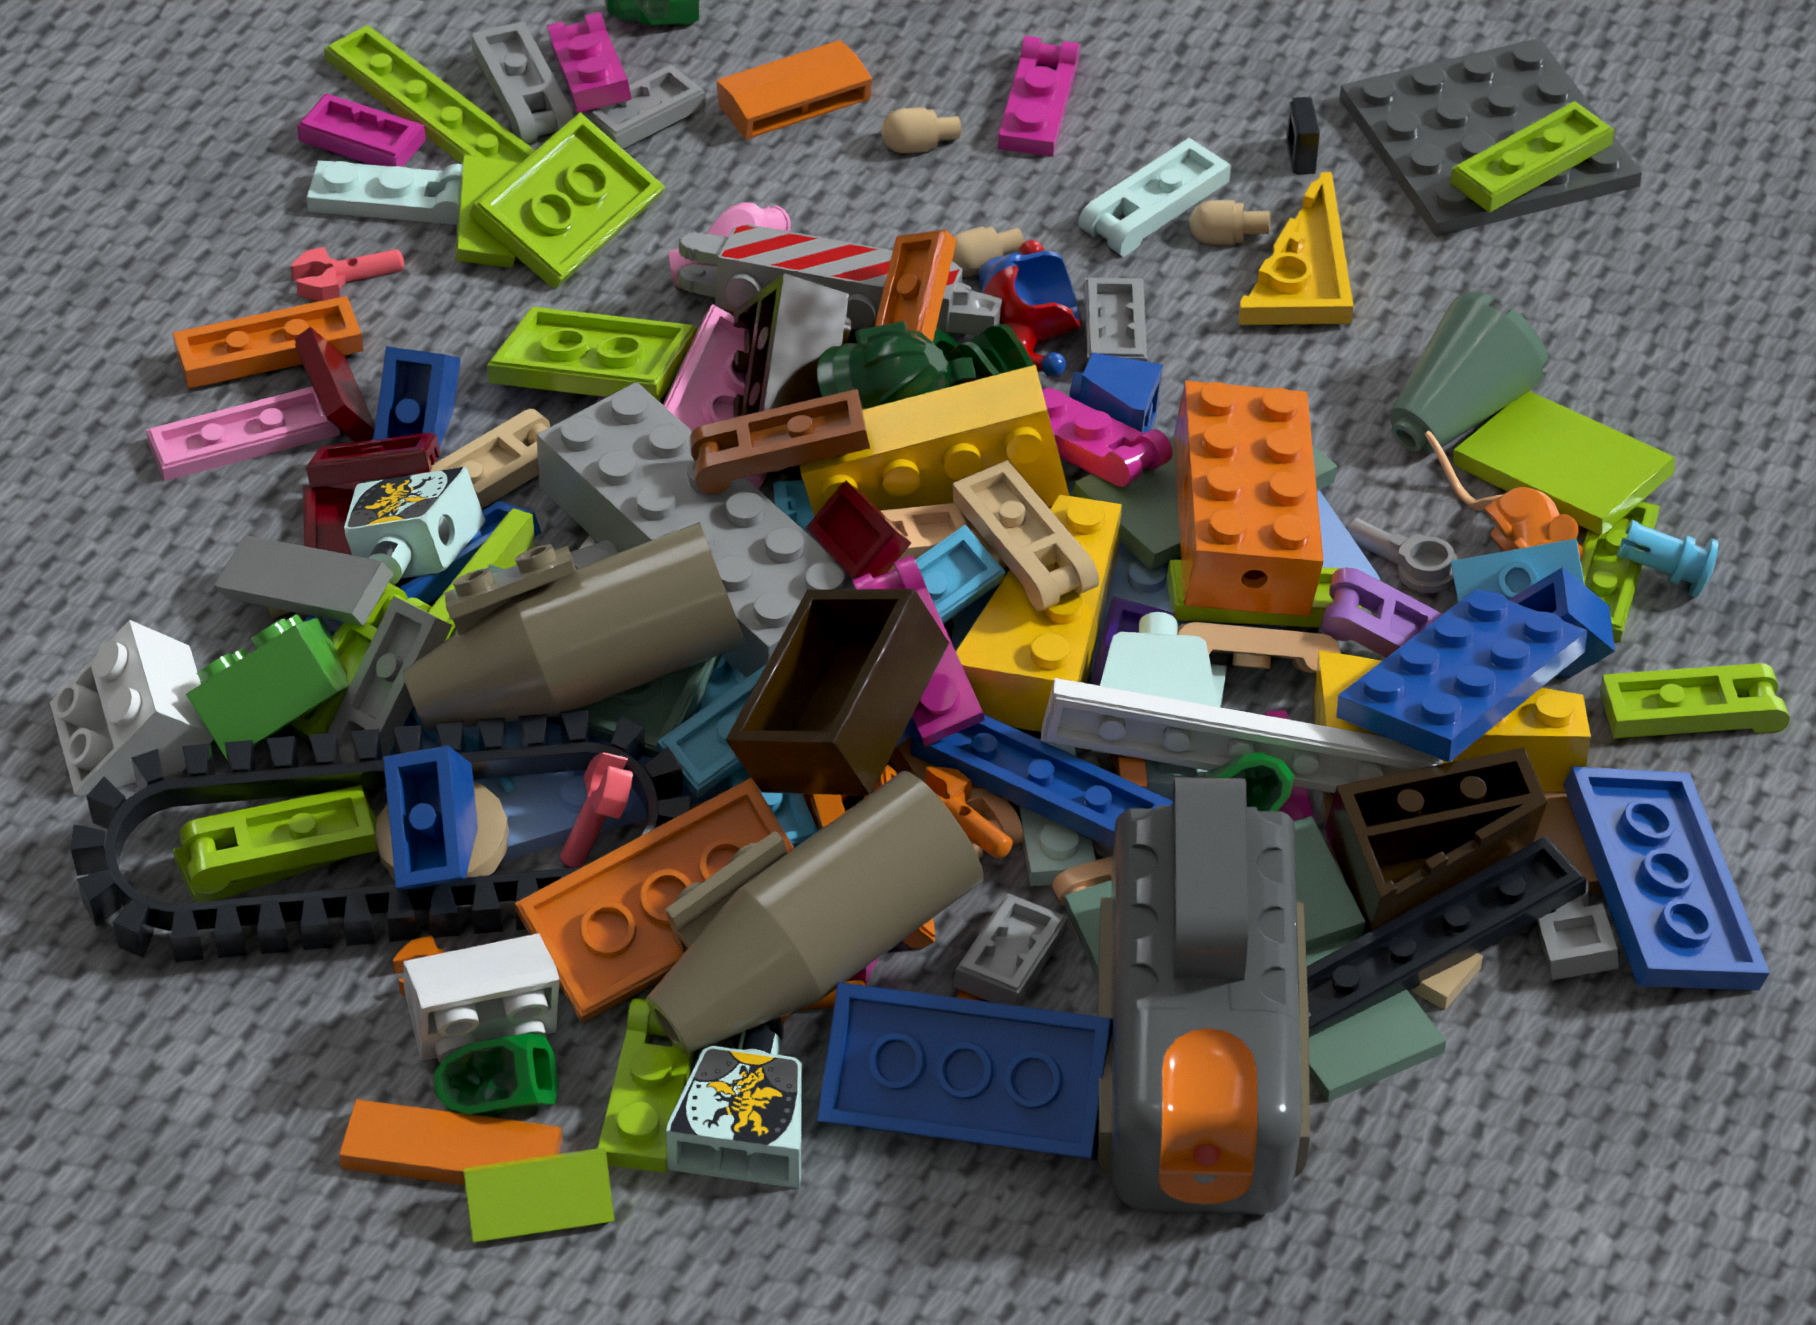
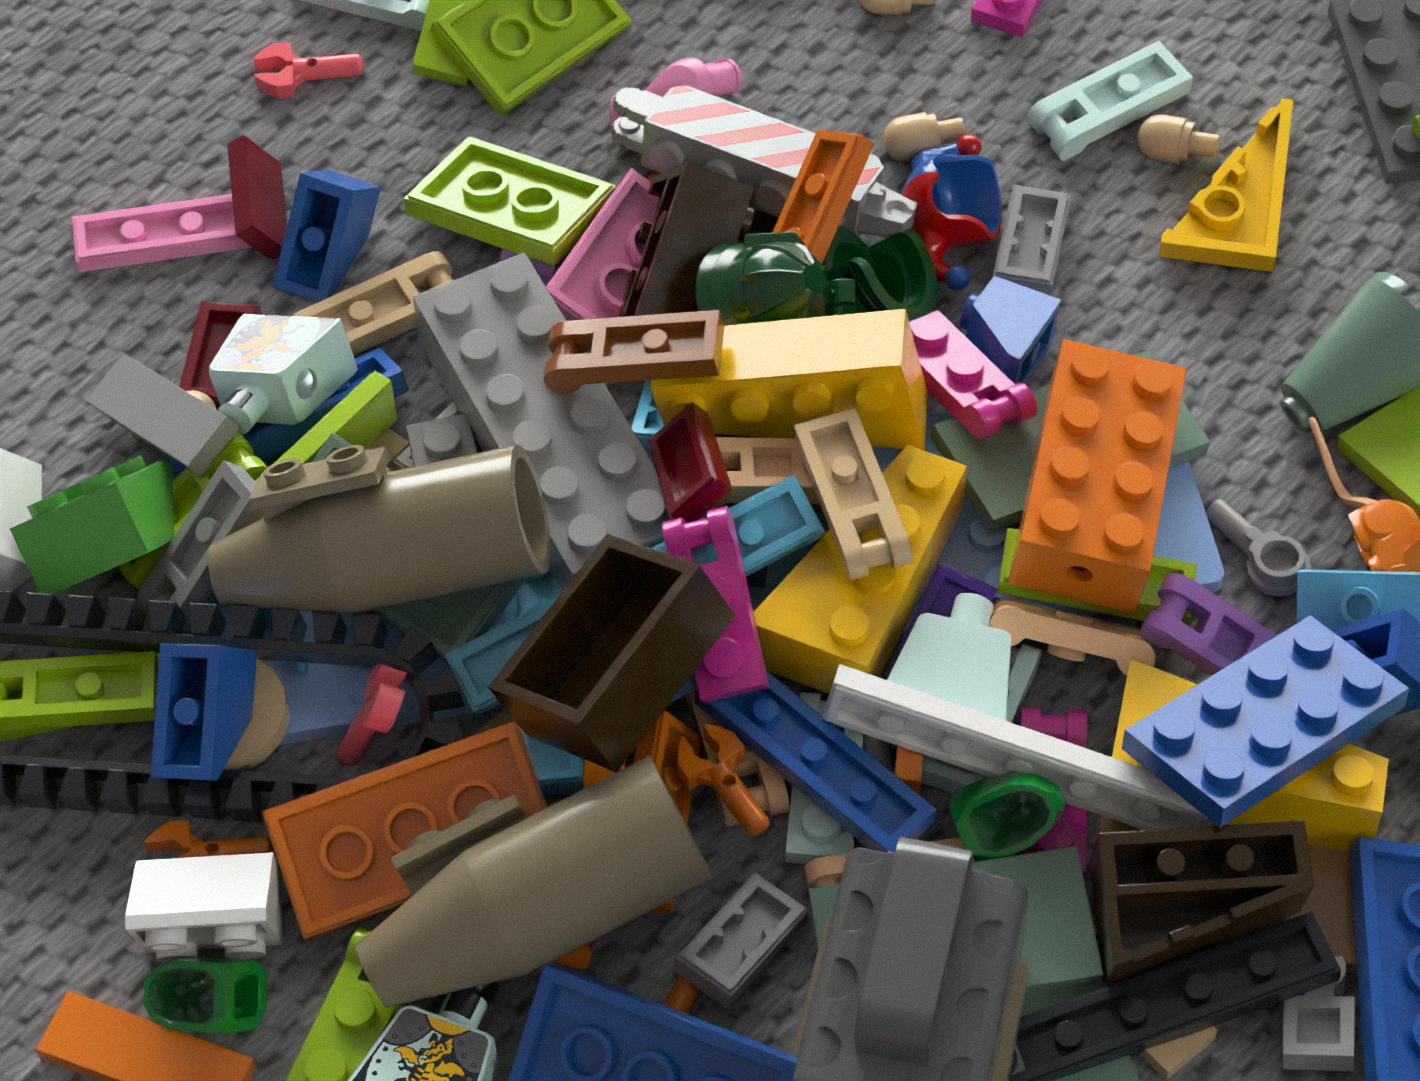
camera: 15 degrees right, 10 degrees up
(262, 341) = (202, 137): orange plate -> none
(373, 459) = (270, 286): dark red tile -> none
(1302, 135) = (1275, 53): black tile -> none

